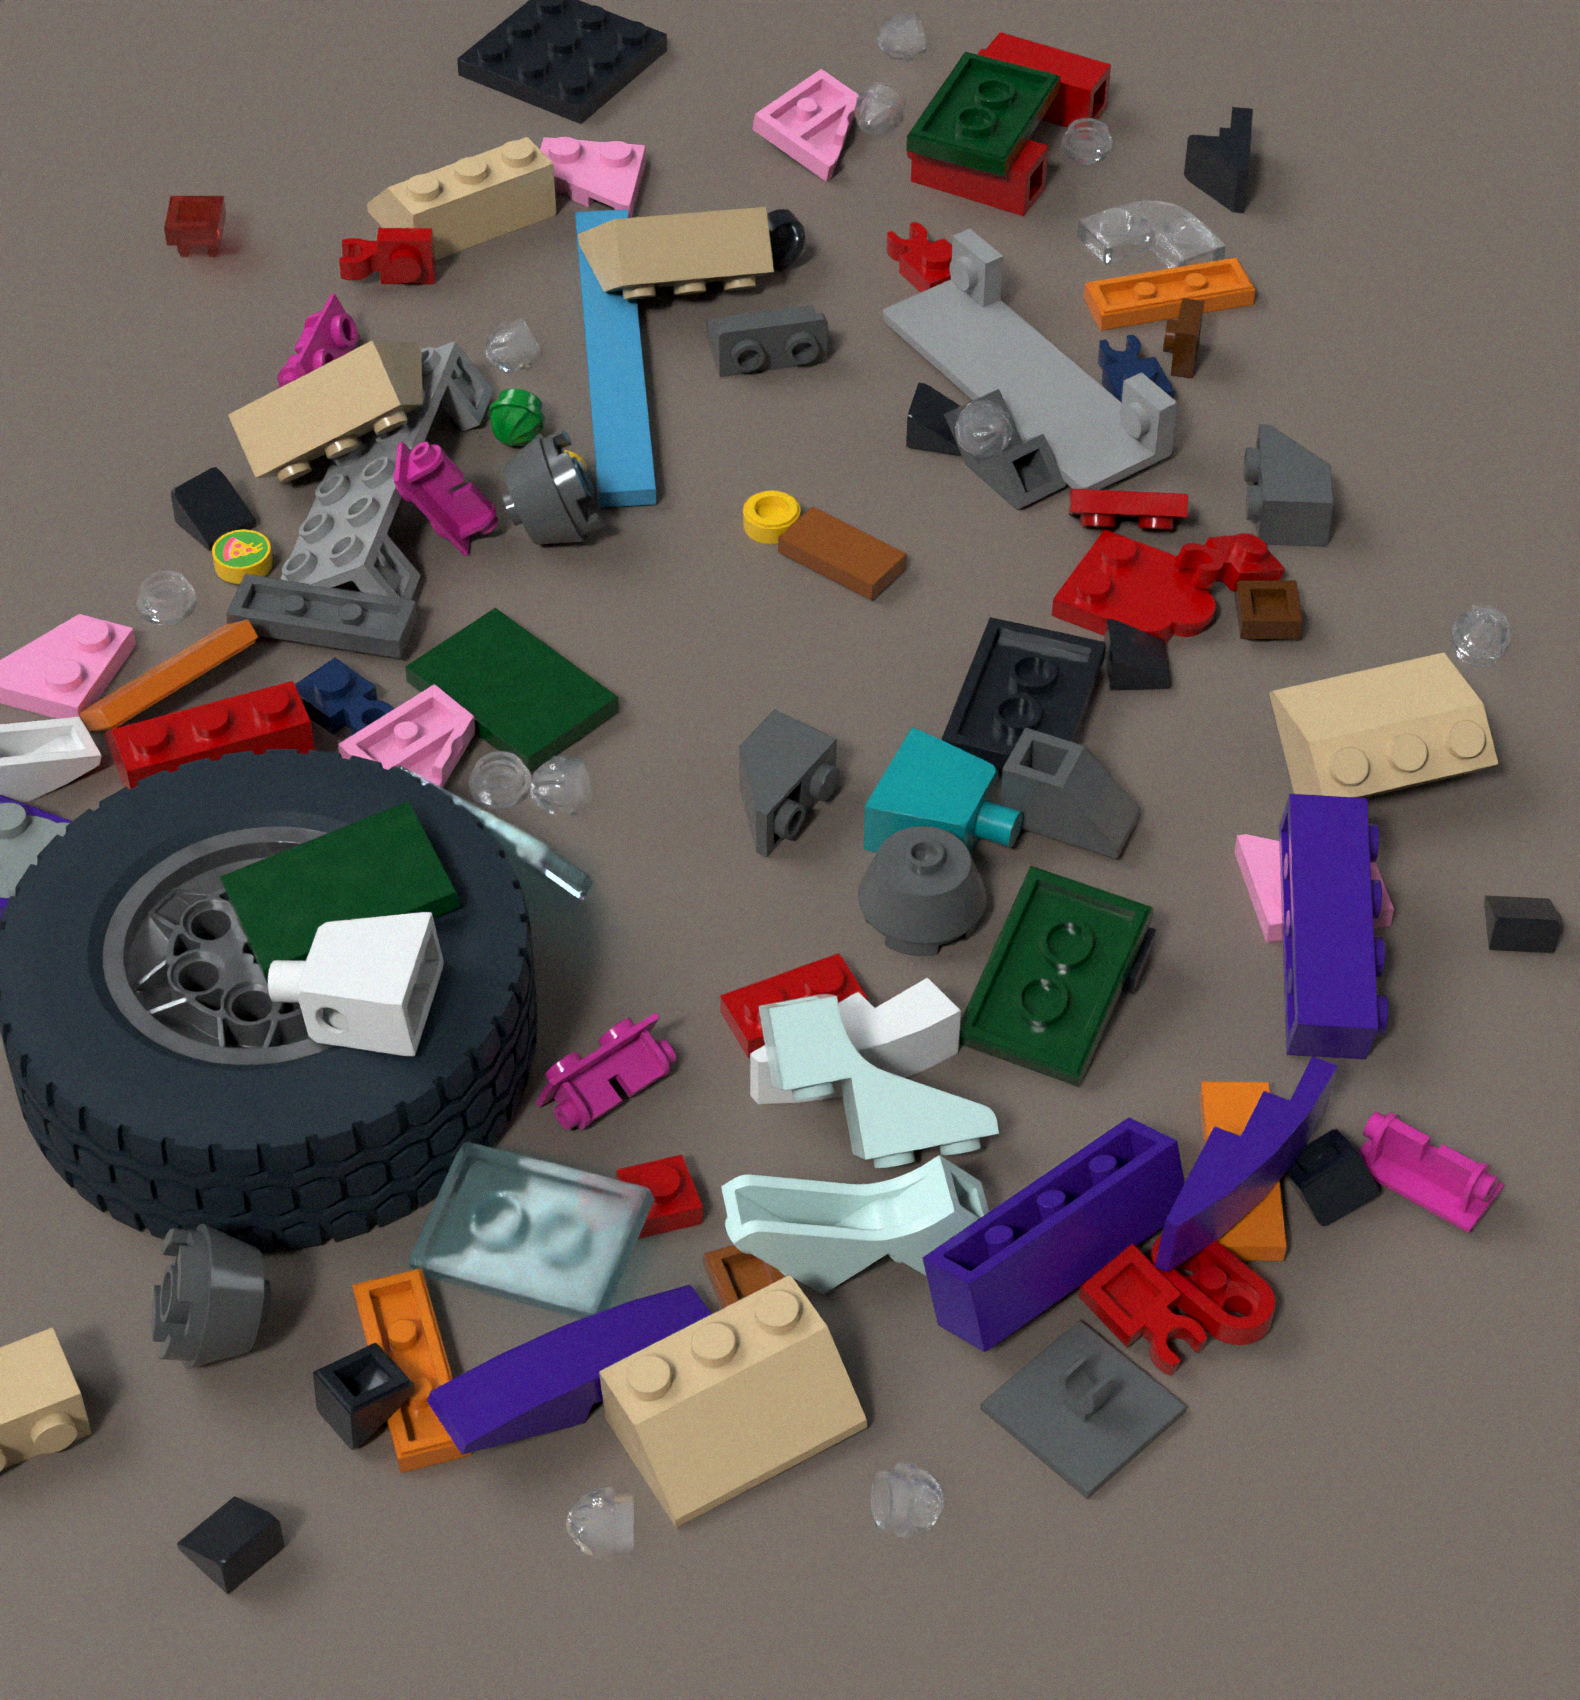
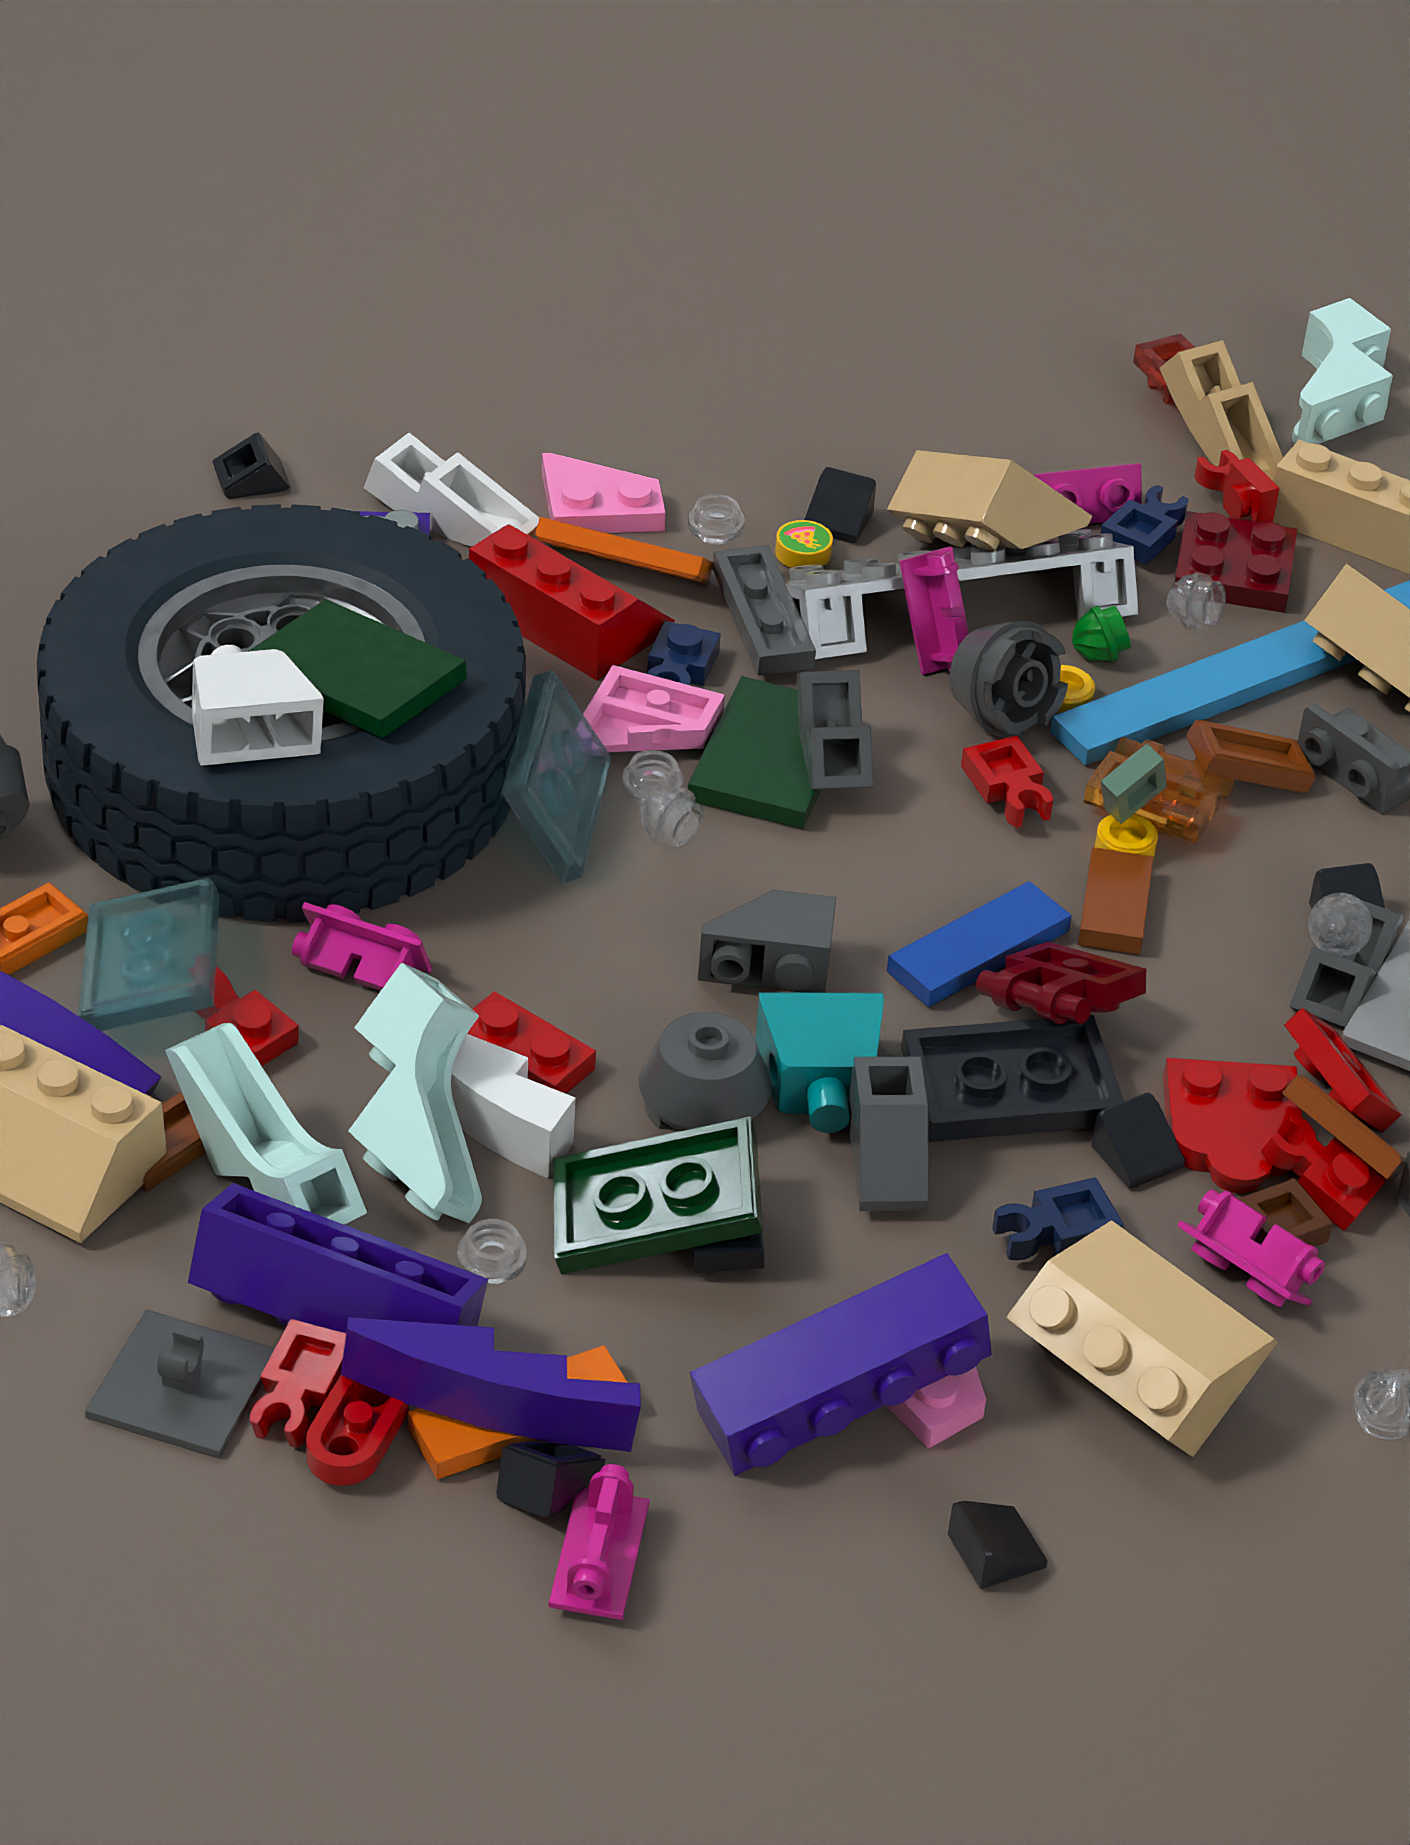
camera: 60 degrees right, 5 degrees down
(288, 222) = (1219, 408): none -> tan slope
(296, 136) = (1350, 379): none -> light aqua arch
(386, 325) = (1147, 526): none -> dark blue plate
(465, 302) = (1243, 555): none -> dark red plate
(564, 640) = (832, 731): none -> dark grey slope
(654, 550) = (1010, 774): none -> red plate
(729, 467) = (1185, 803): none -> clear orange plate
(734, 397) = (1250, 756): none -> dark orange tile
(754, 469) = (1134, 783): none -> sand green tile
(843, 657) = (977, 942): none -> blue tile
(946, 618) = (1062, 983): none -> dark red plate
(1051, 1106) = (492, 1251): none -> clear plate
(1201, 525) = (1345, 1127): none -> dark orange tile
(1203, 735) = (1056, 1218): none -> dark blue plate
(1322, 632) = (1275, 1266): none -> dark pink hinge

